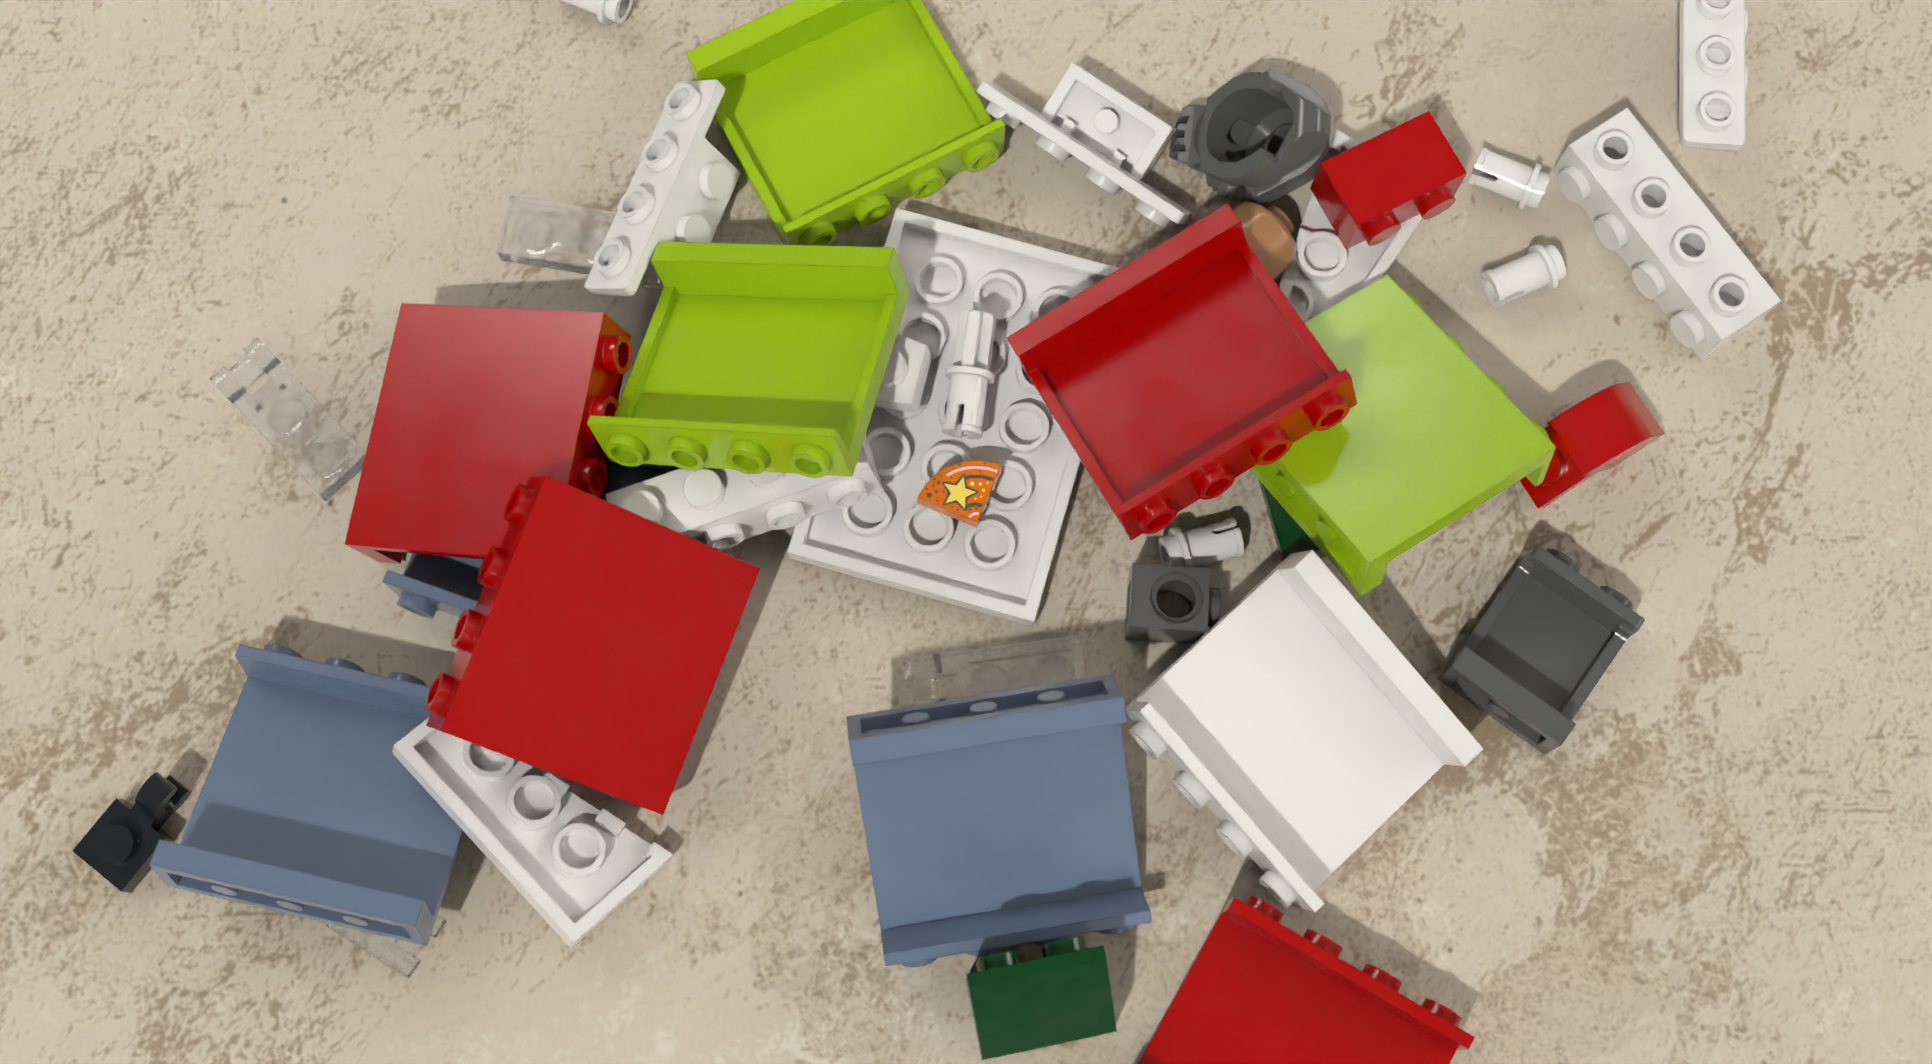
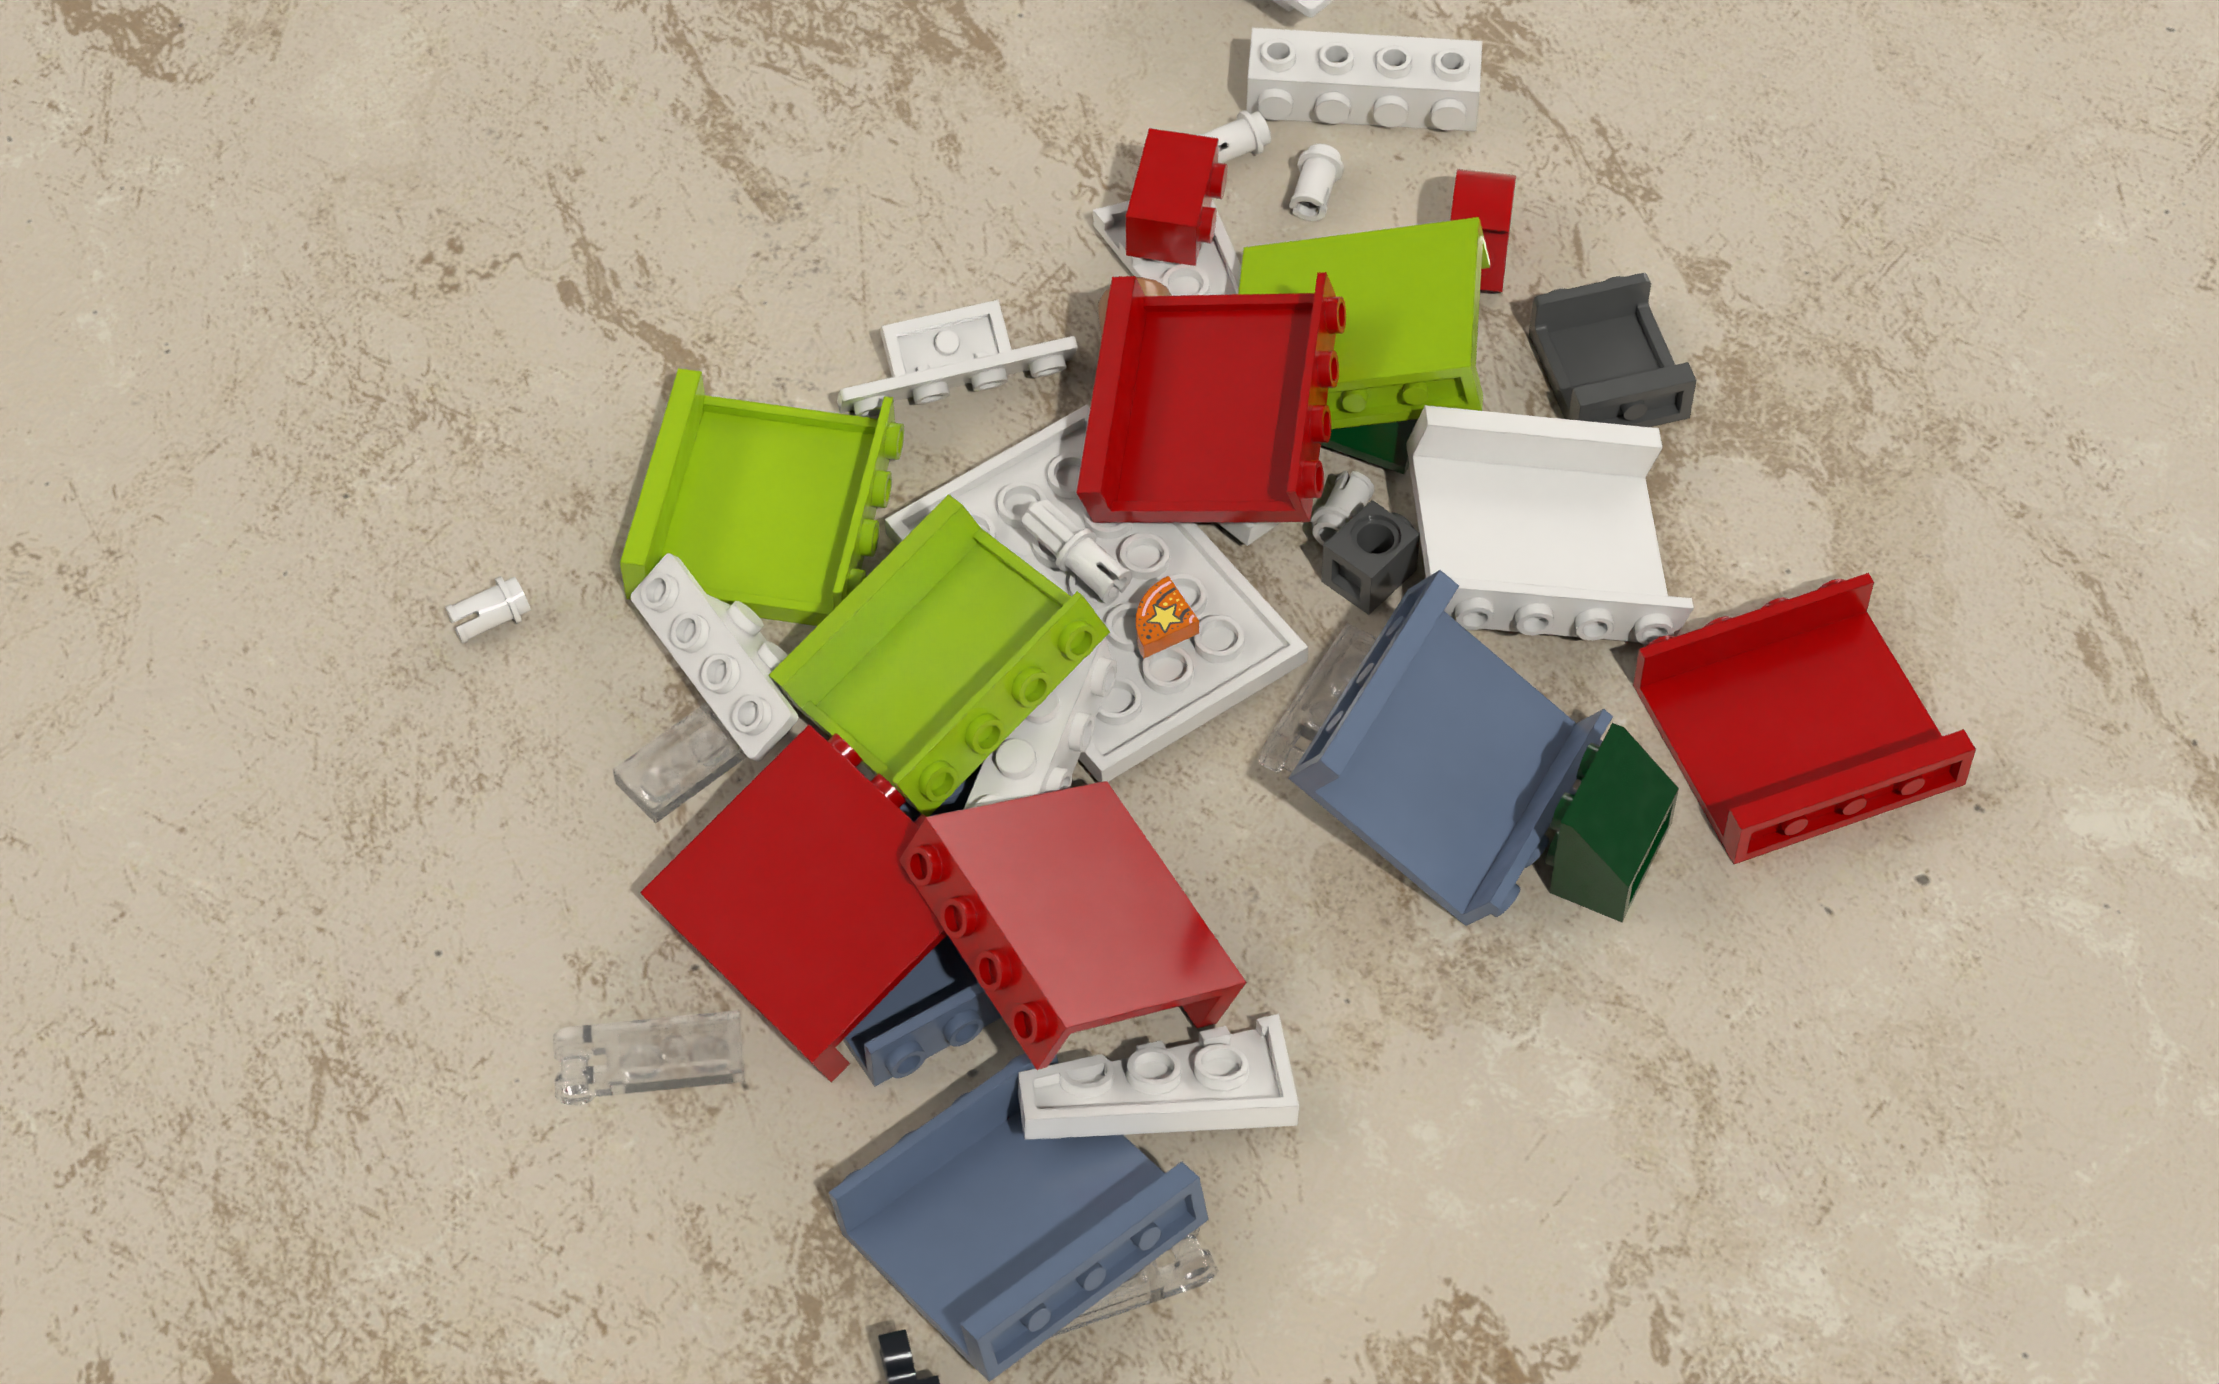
camera: 50 degrees left, 20 degrees down
(1255, 137) = (1055, 255): dark grey helmet -> none

